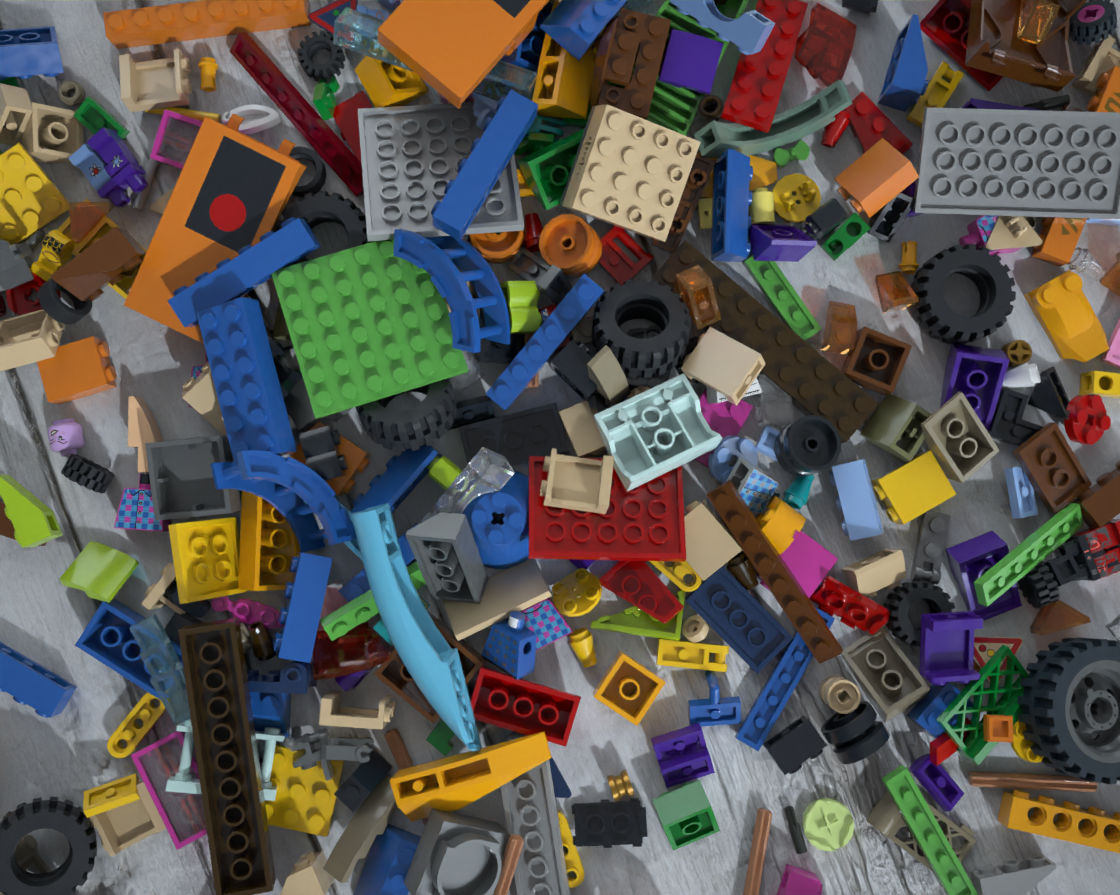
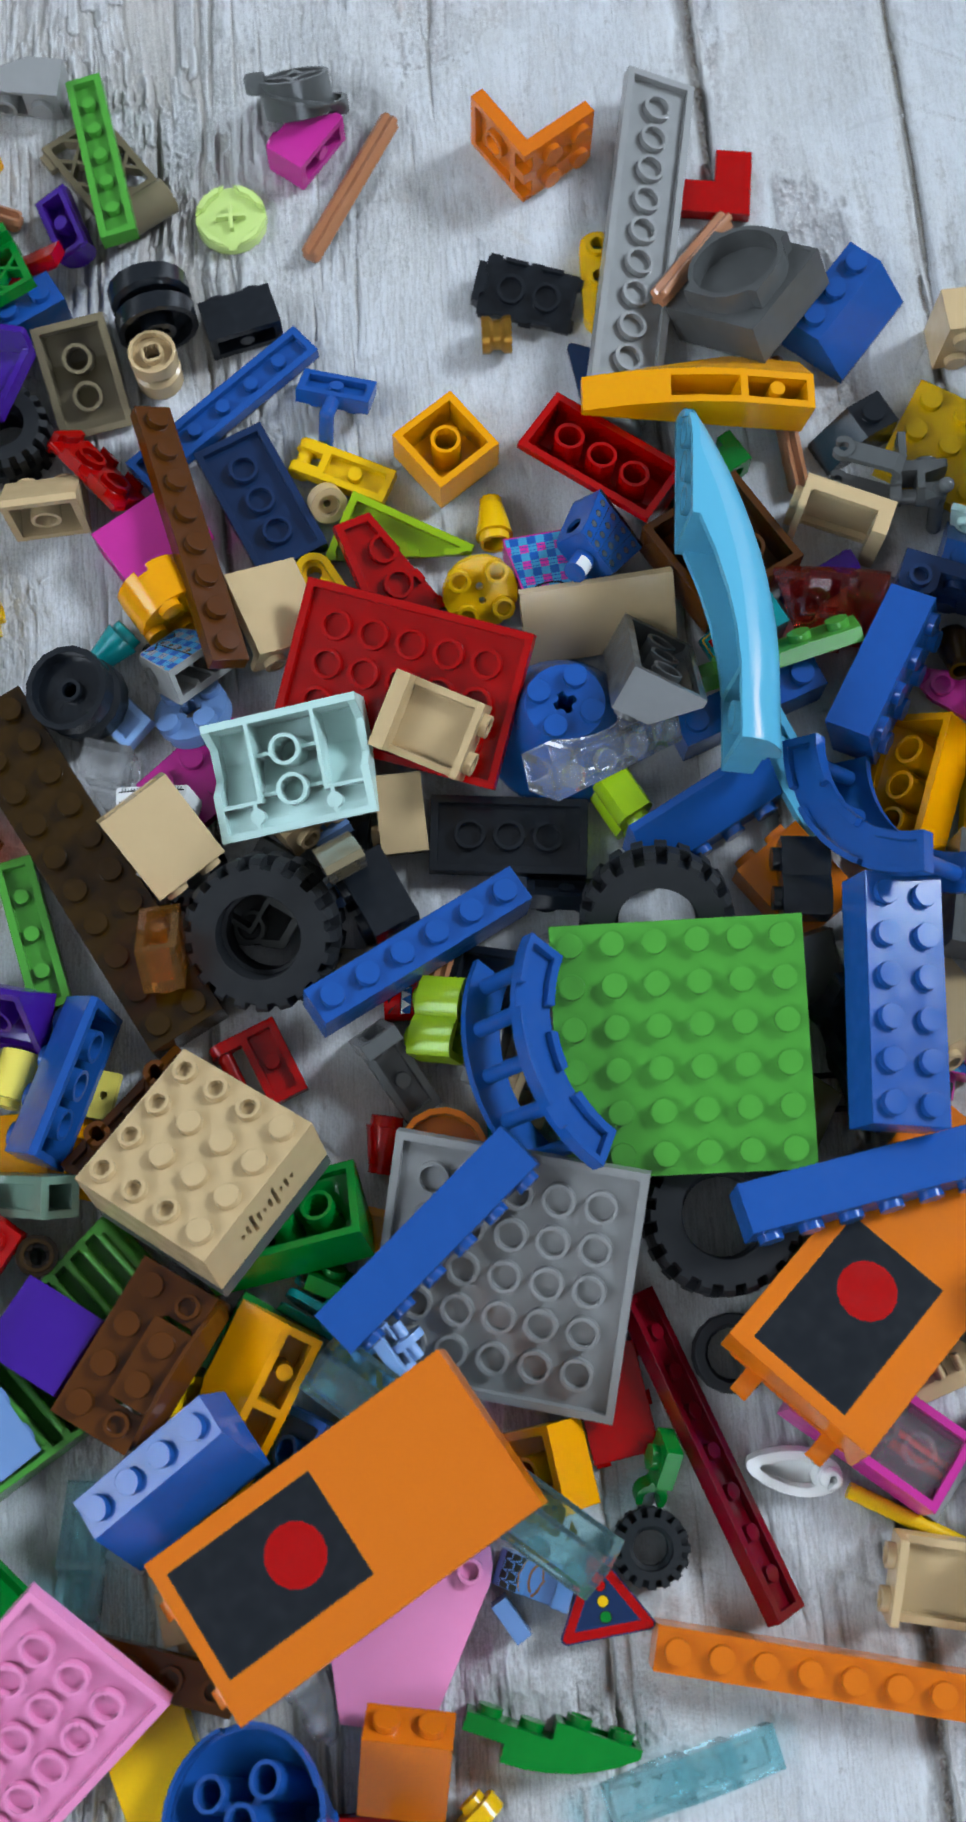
camera: 160 degrees left, 10 degrees down
(208, 74) = (849, 1573): light orange pin -> none
(361, 831) = (870, 367): dark tan slope -> none
(570, 245) = (357, 1092): orange wheel -> none
(682, 755) = (398, 350): dark purple slope -> none
(686, 814) = (419, 278): green slope -> none
(743, 570) = (230, 554): dark brown cone -> none
(795, 831) = (277, 223): pearl dark grey piece -> none
(856, 500) = (33, 606): light blue brick -> none

